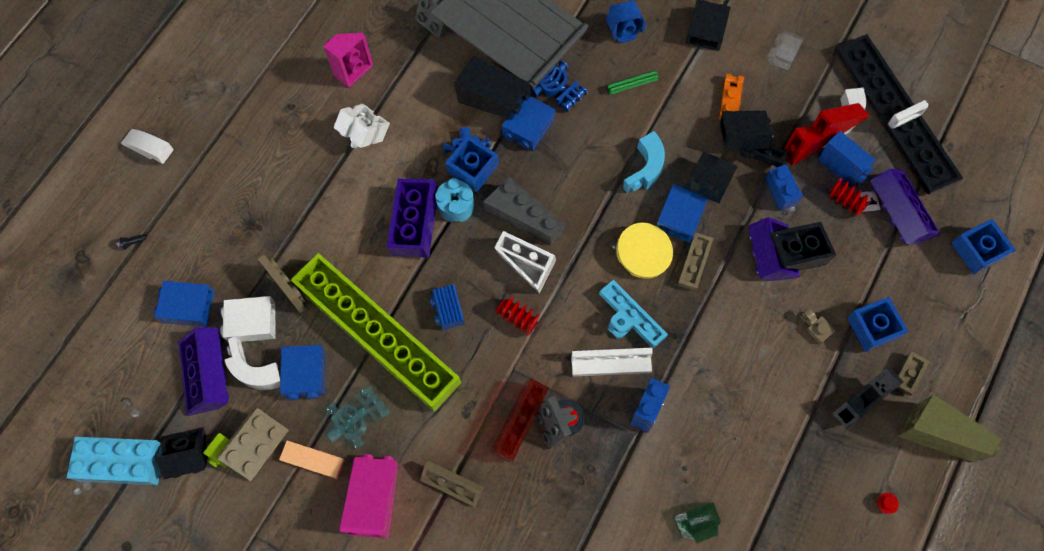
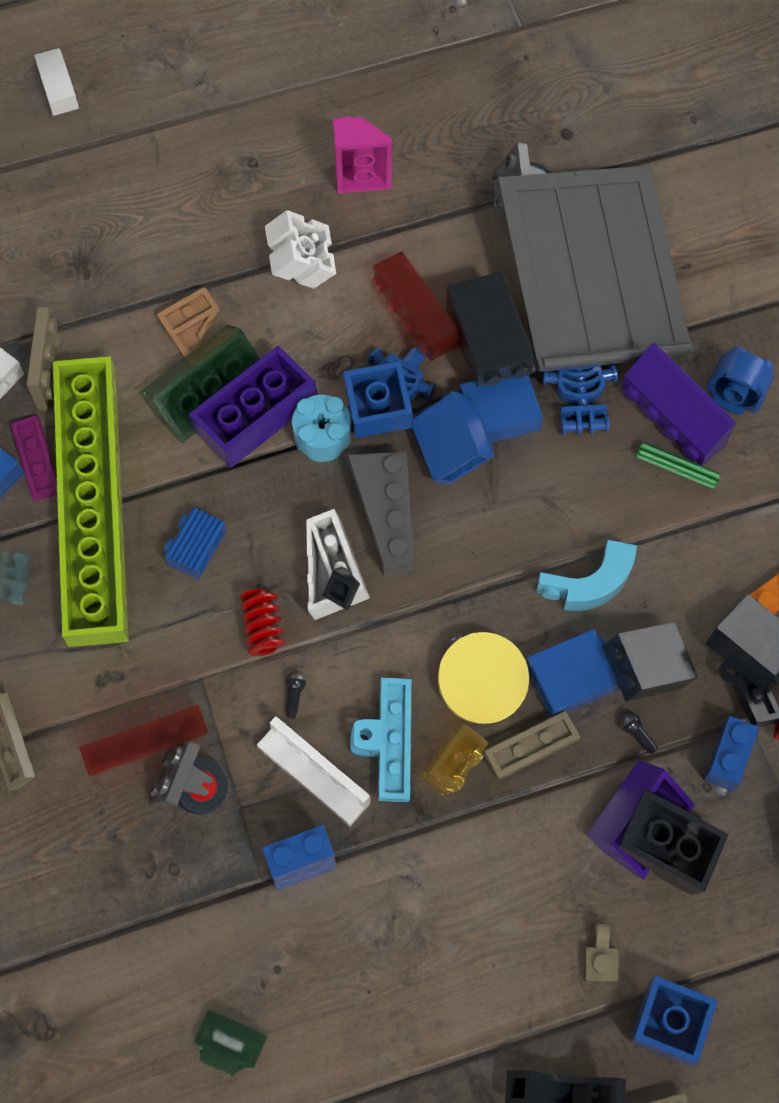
camera: 40 degrees right, 0 degrees up
(324, 336) = (35, 458): none -> magenta tile
(337, 206) = (189, 320): none -> medium nougat wing
(372, 228) = (198, 379): none -> clear green slope
(443, 107) = (416, 306): none -> clear red brick
(522, 153) = (452, 438): none -> blue brick
(545, 263) = (341, 587): none -> black slope
(561, 330) = (295, 684): none -> black piece
(609, 53) = (678, 405): none -> dark purple slope
(670, 297) = (454, 759): none -> clear yellow brick
(728, 213) = (632, 724): none -> black piece

